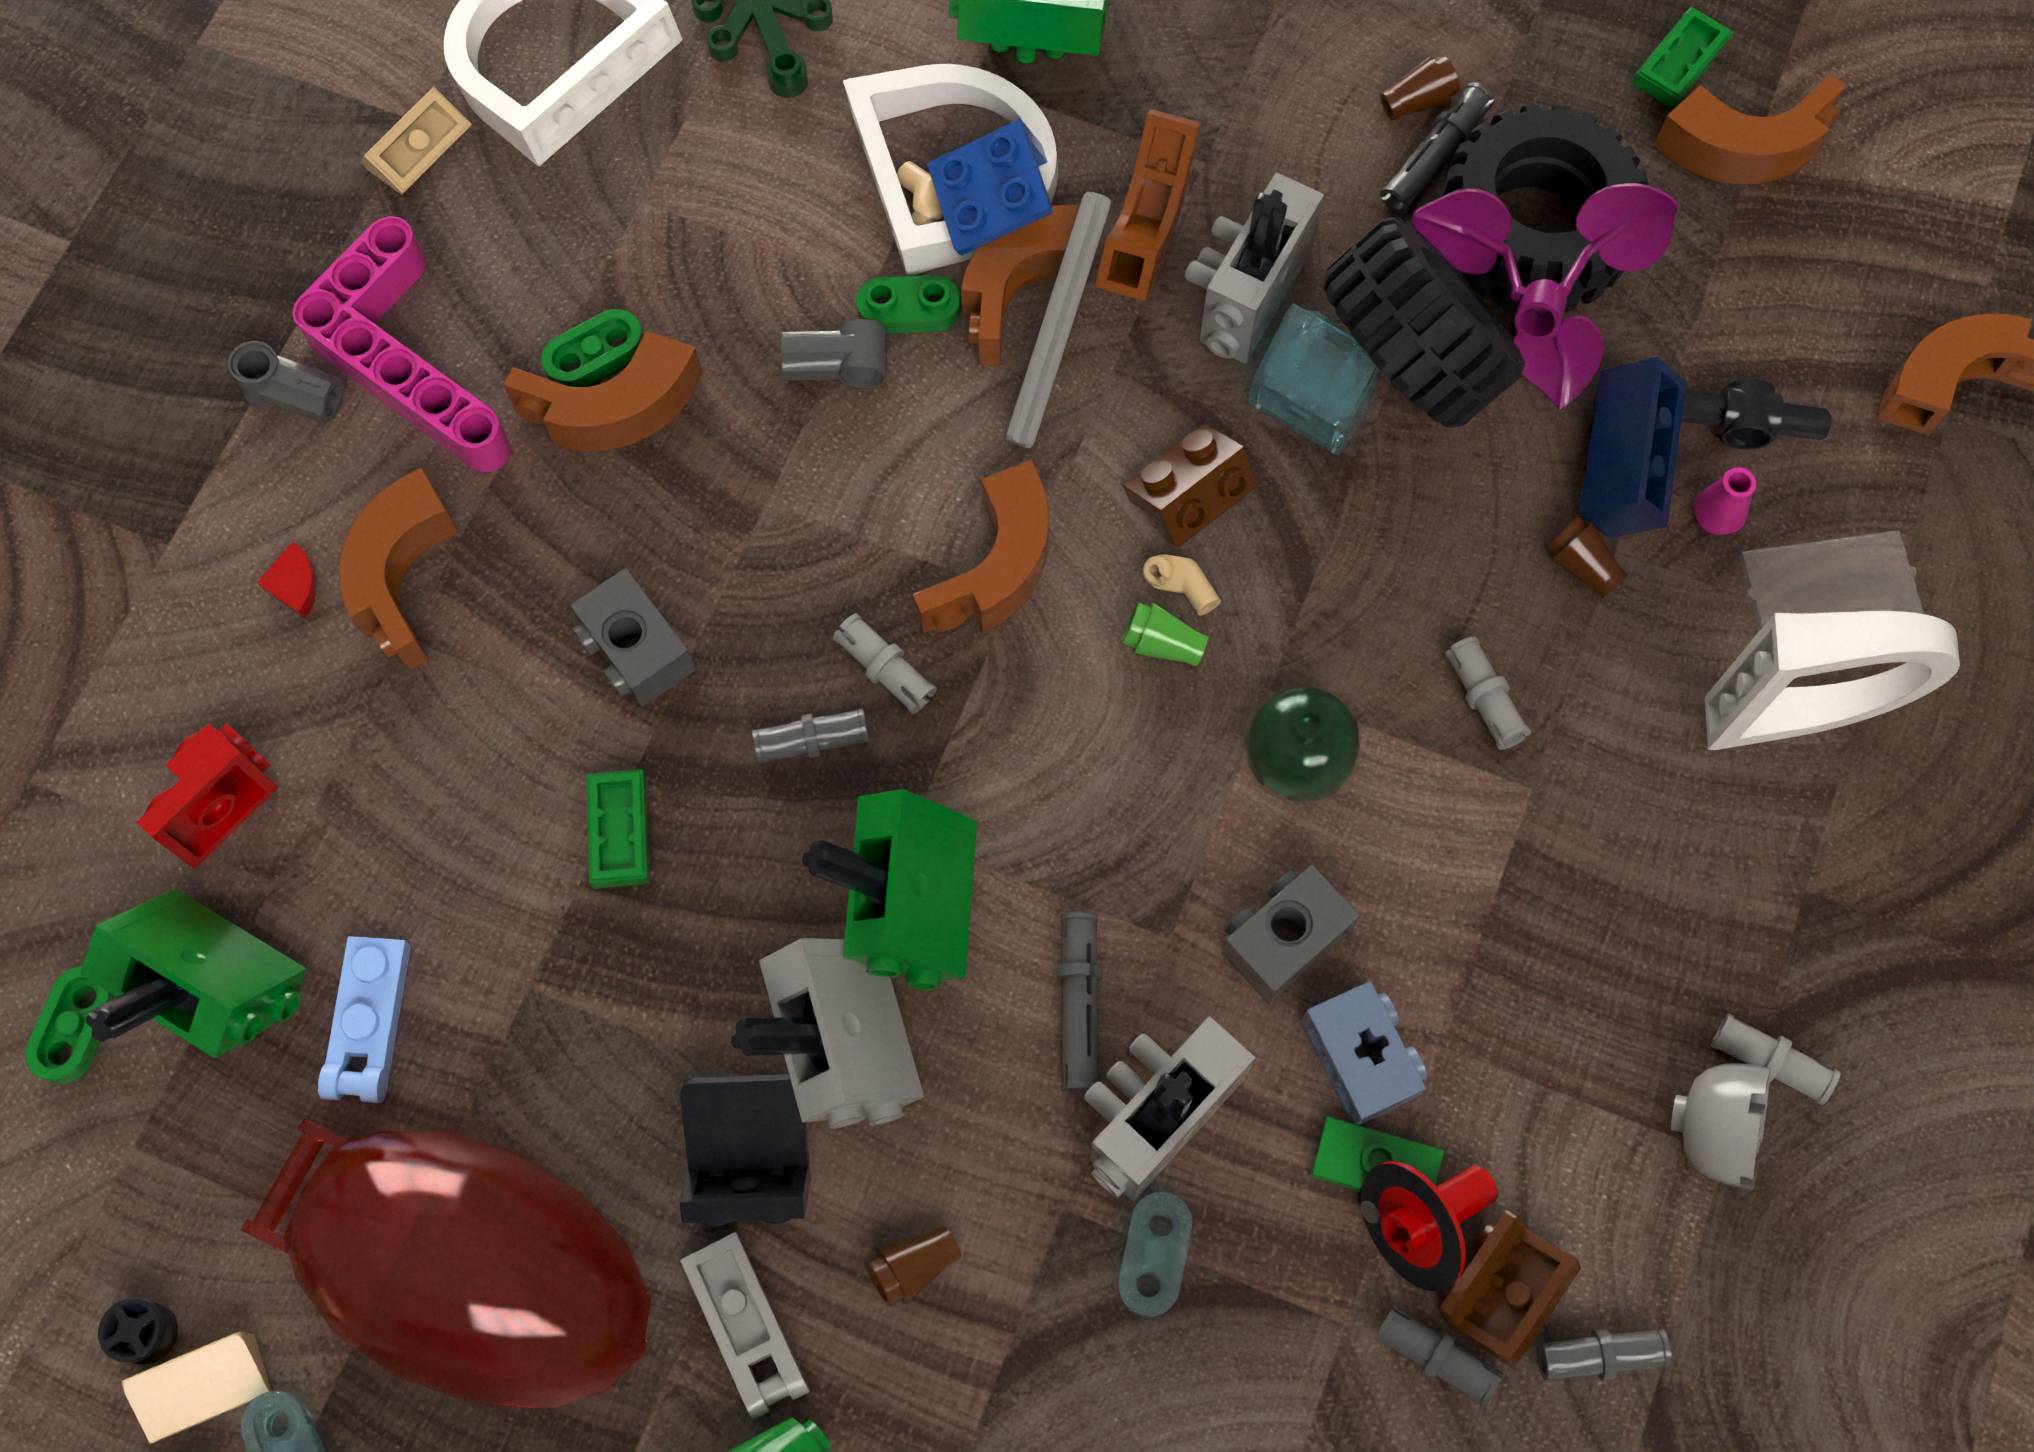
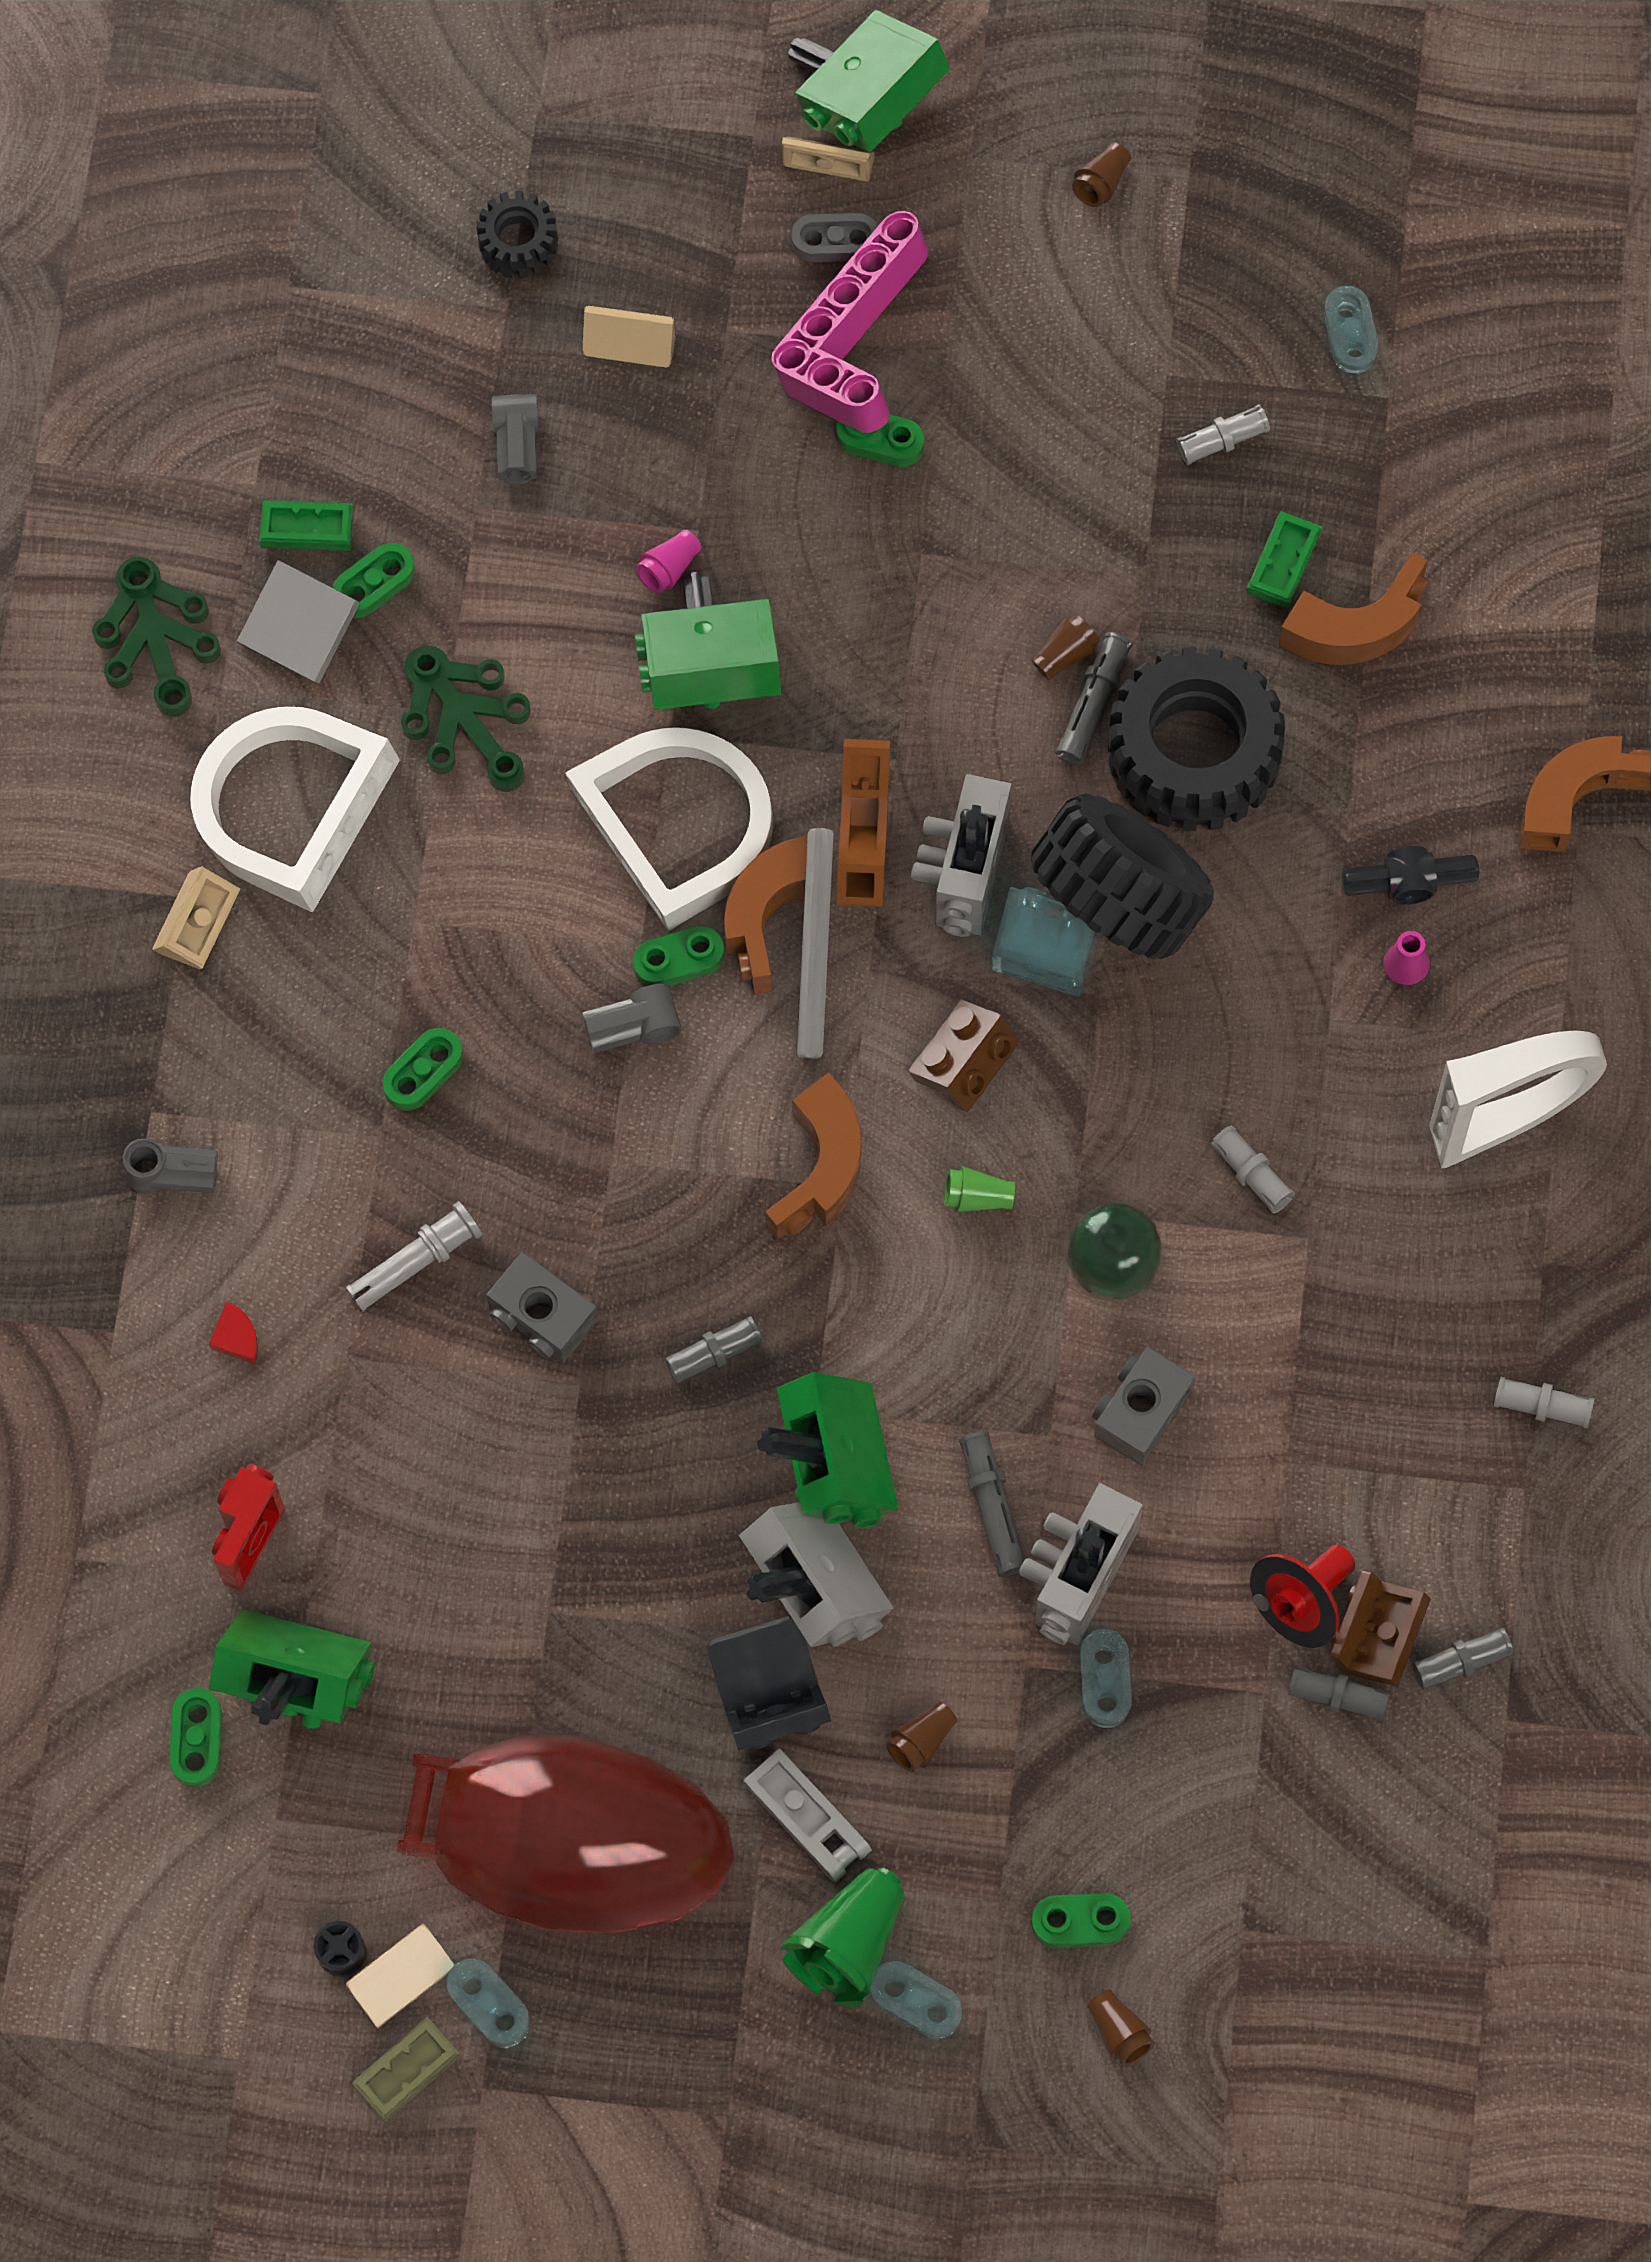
camera: 15 degrees left, 0 degrees up
(353, 329) = (253, 1120): dark pink beam -> none
(365, 1018) = (428, 1668): light blue plate -> none
(377, 553) = (308, 1272): dark orange arch -> none
(537, 537) = (433, 1244): none -> light grey pin
(617, 411) = (462, 1118): dark orange arch -> none
(617, 829) = (581, 1466): green plate -> none
(884, 663) = (755, 1274): light grey pin -> none
(925, 198) = (667, 855): tan arm -> none
(991, 186) = (726, 842): blue bracket -> none
(1183, 577) = (979, 1136): tan arm -> none
(1351, 1151) = (1234, 1559): green plate -> none
(1363, 1085) = (1229, 1508): sand blue brick -> none
(1586, 556) = (1305, 1033): reddish brown cone -> none
(1624, 223) = (1242, 865): magenta plant -> none
(1633, 448) = (1321, 932): dark blue brick -> none
(1724, 1122) = (1514, 1460): light grey cylinder -> none
(1831, 577) = (1510, 1002): clear piece -> none

